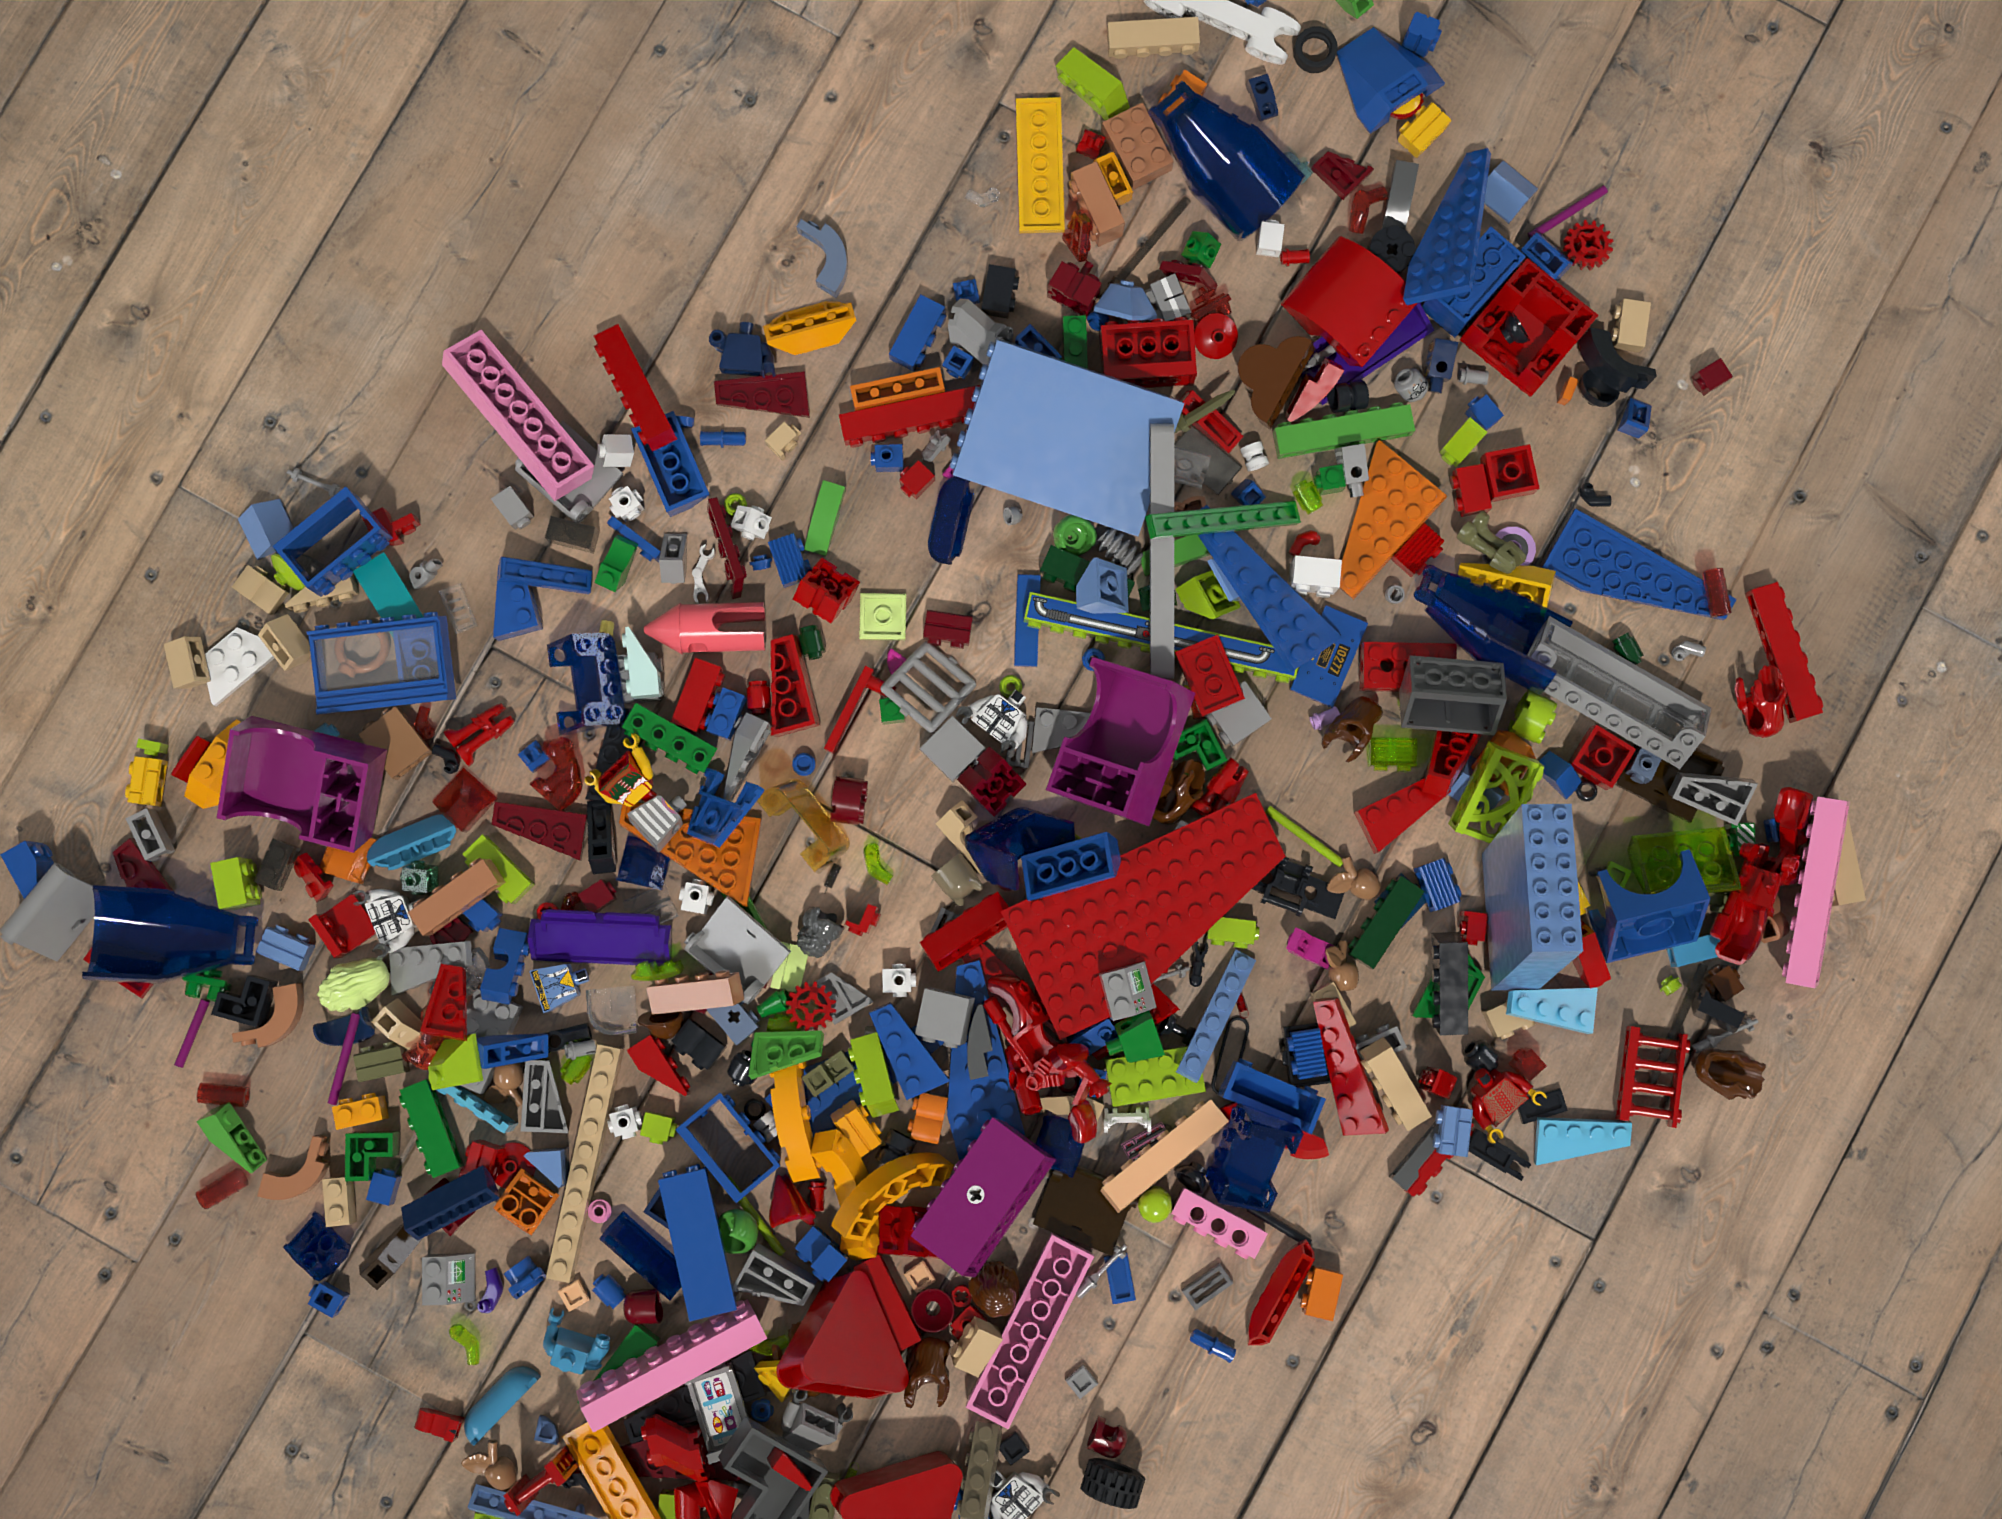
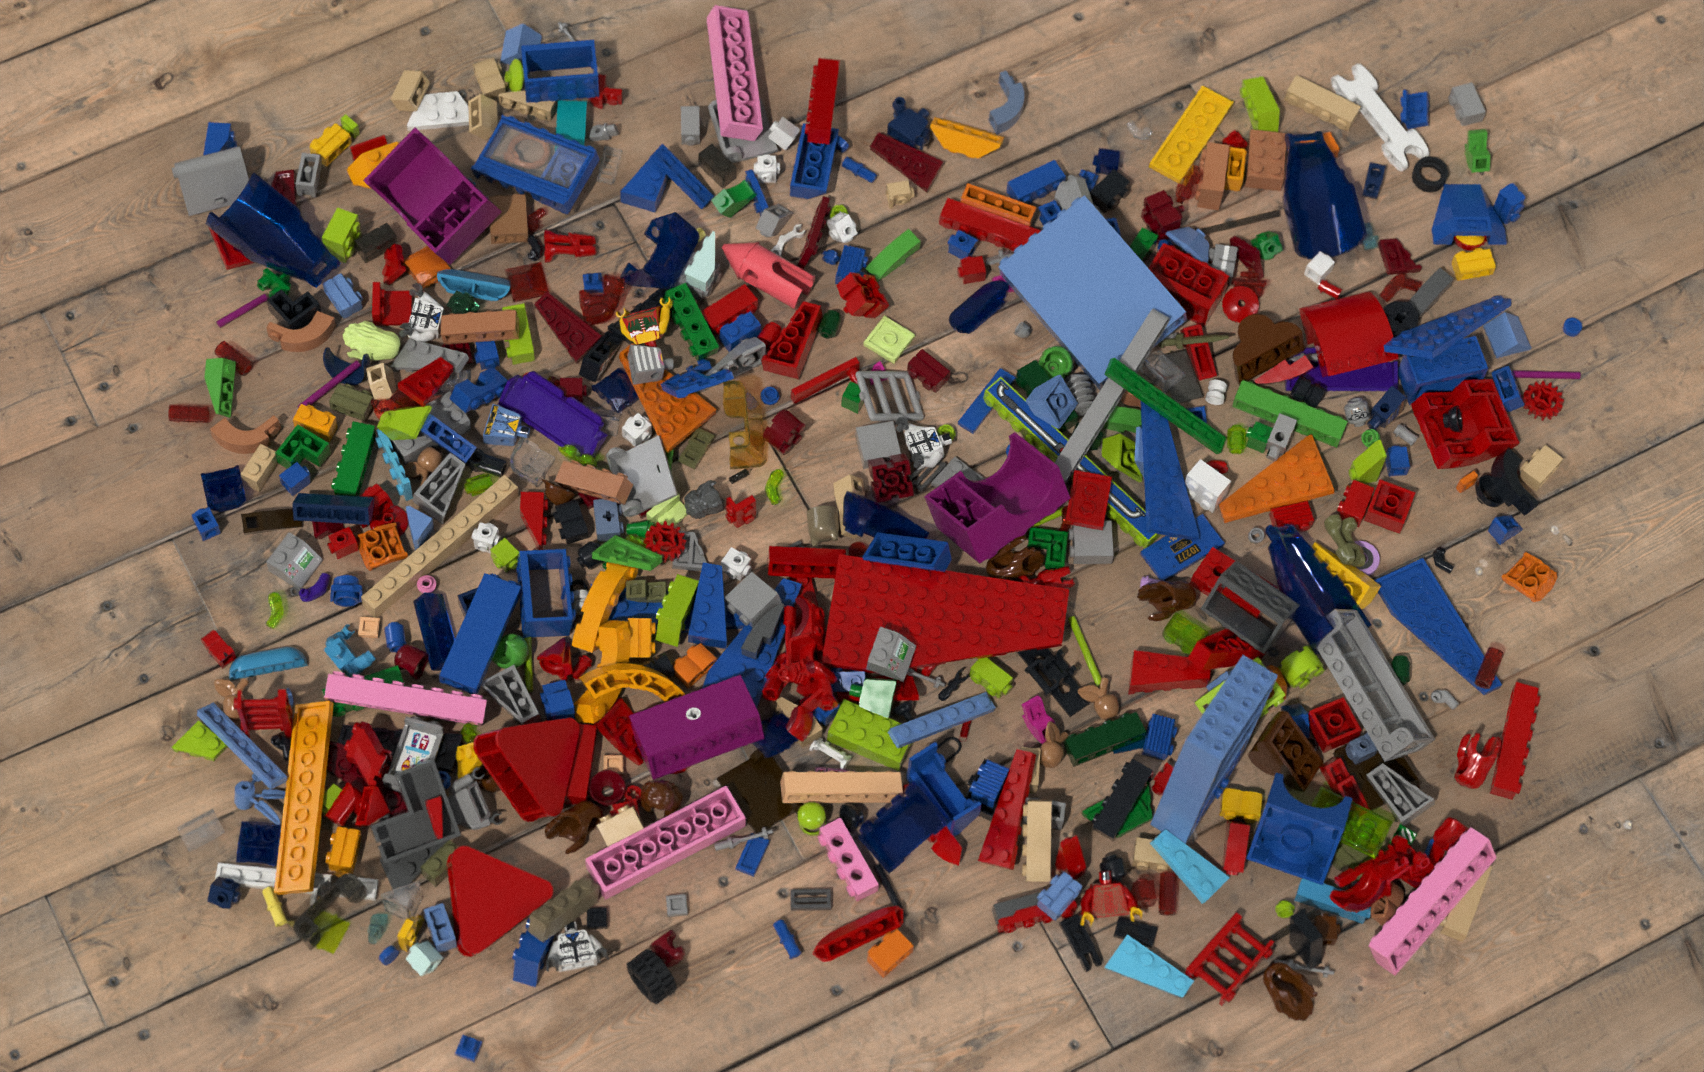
camera: 30 degrees right, 20 degrees down
(483, 1225) = (342, 543): none -> red brick
(579, 1049) = (489, 470): light grey pin -> none
(768, 874) = (696, 448): none -> olive slope
(974, 257) = (1106, 161): none -> clear blue brick
(1435, 405) = (1367, 435): none -> bright green plate
(1549, 1047) = (1167, 893): none -> clear red axle
(1564, 136) = (1572, 327): none -> blue tile
(1590, 820) = (1286, 751): none -> reddish brown brick
(1647, 813) = (1341, 782): none -> red slope
(1693, 458) = (1531, 577): none -> orange slope
(1711, 377) = (1577, 534): dark red brick -> none

